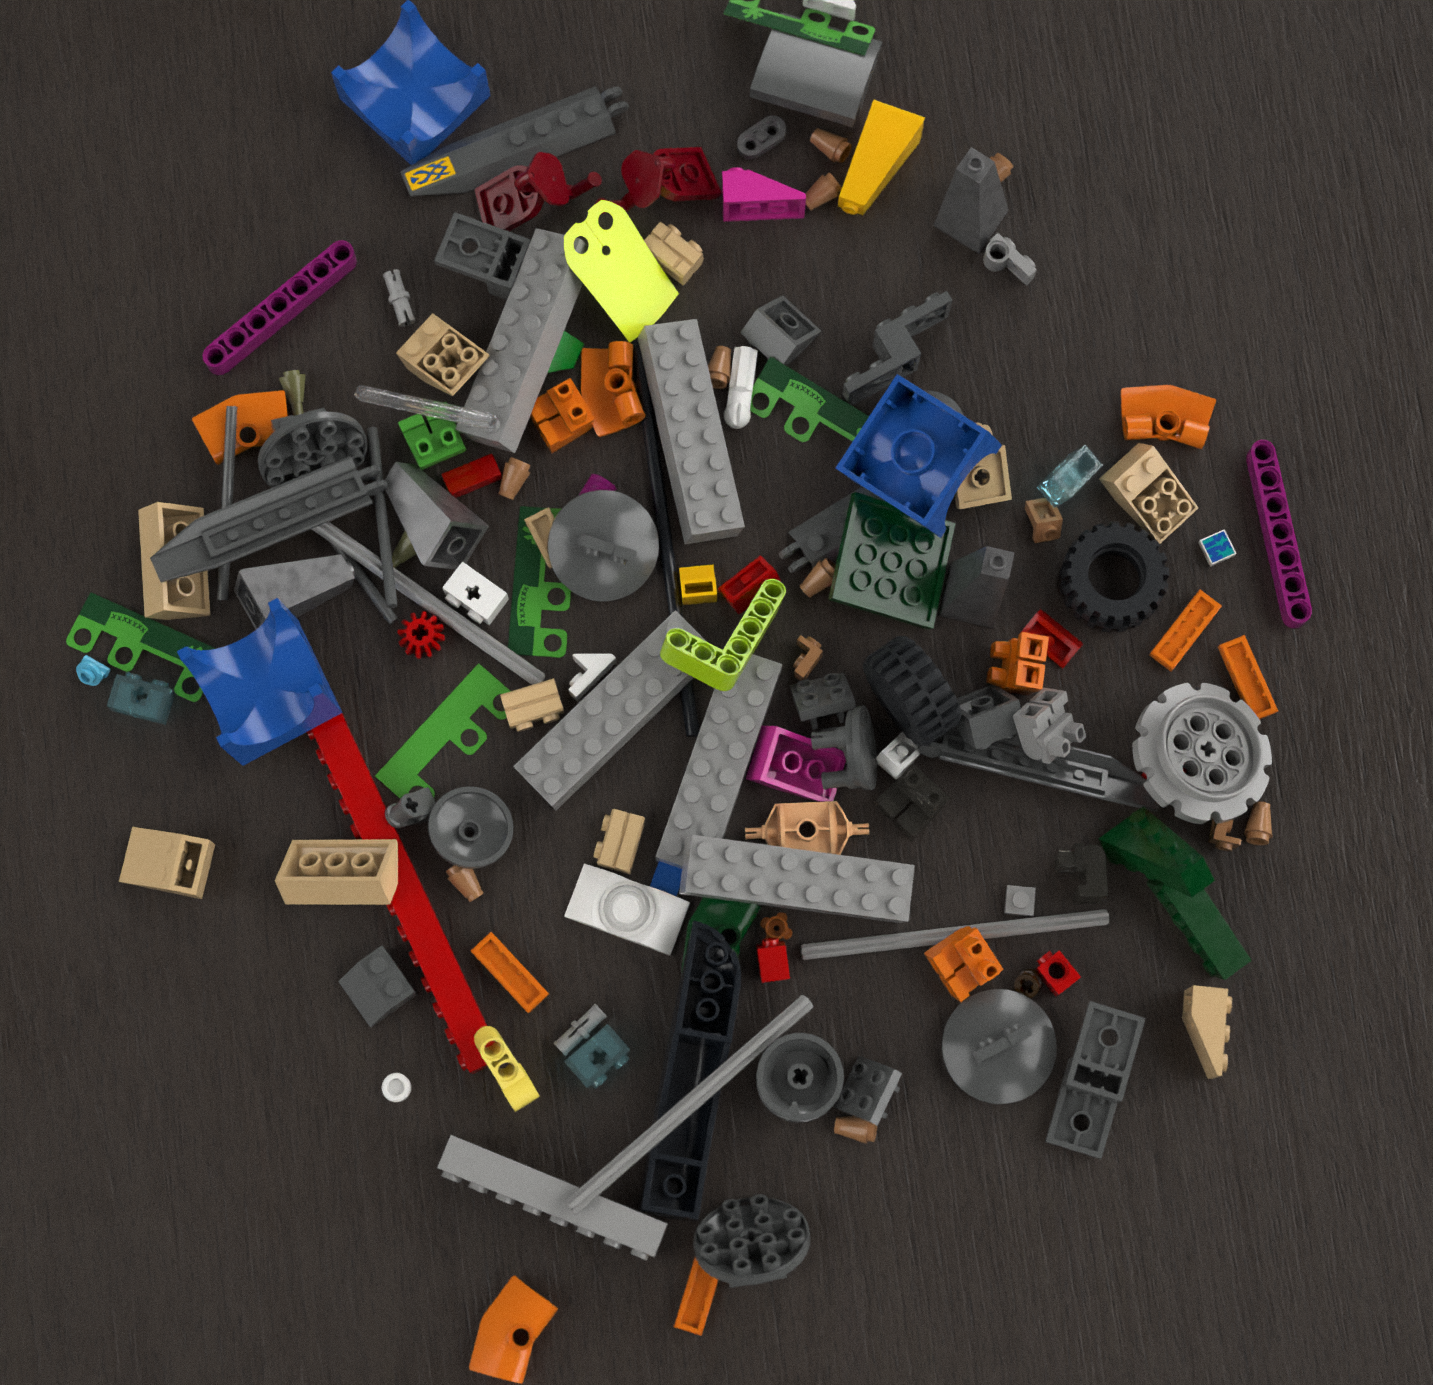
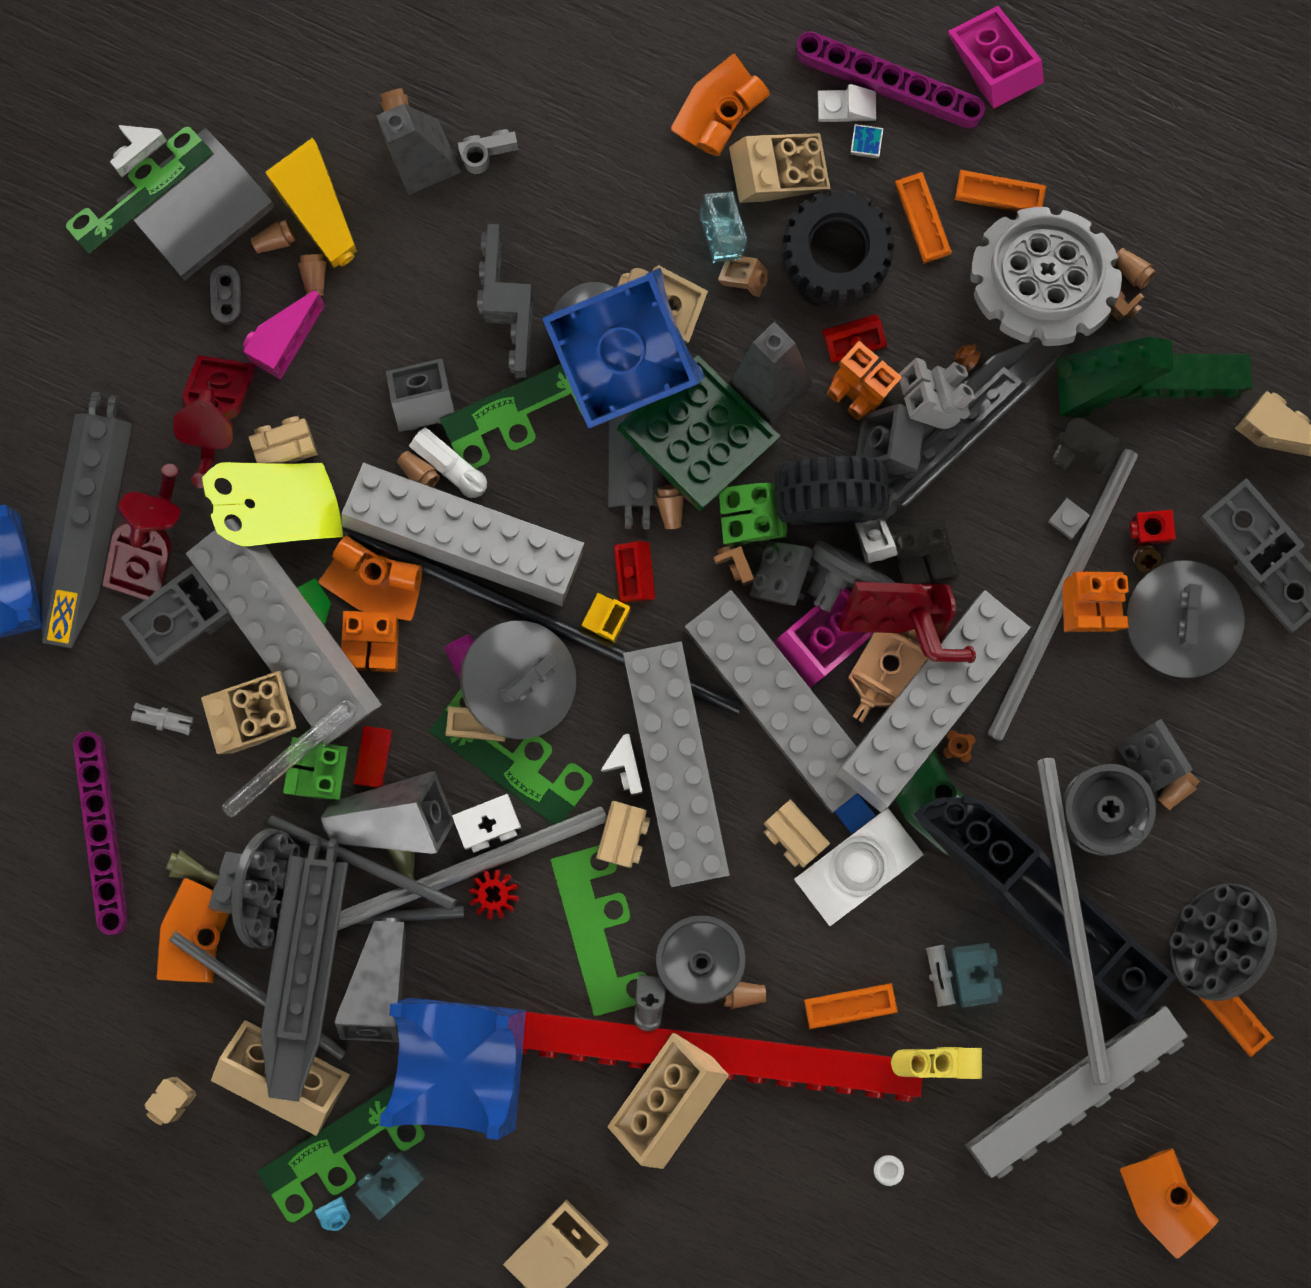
camera: 55 degrees left, 5 degrees up
(102, 487) = (169, 1101): none -> tan brick
(377, 986) = (789, 1132): dark grey slope -> none
(513, 477) = (400, 720): medium nougat cone -> none
(718, 666) = (691, 614): lime beam -> none
(772, 960) = (987, 767): red brick -> none
(853, 643) = (762, 520): none -> bright green hips
(854, 808) = (904, 608): none -> dark red plate
(1096, 736) = (967, 356): none -> dark orange plate
(1235, 514) = (847, 105): none -> white slope
(1356, 606) = (997, 56): none -> dark pink slope

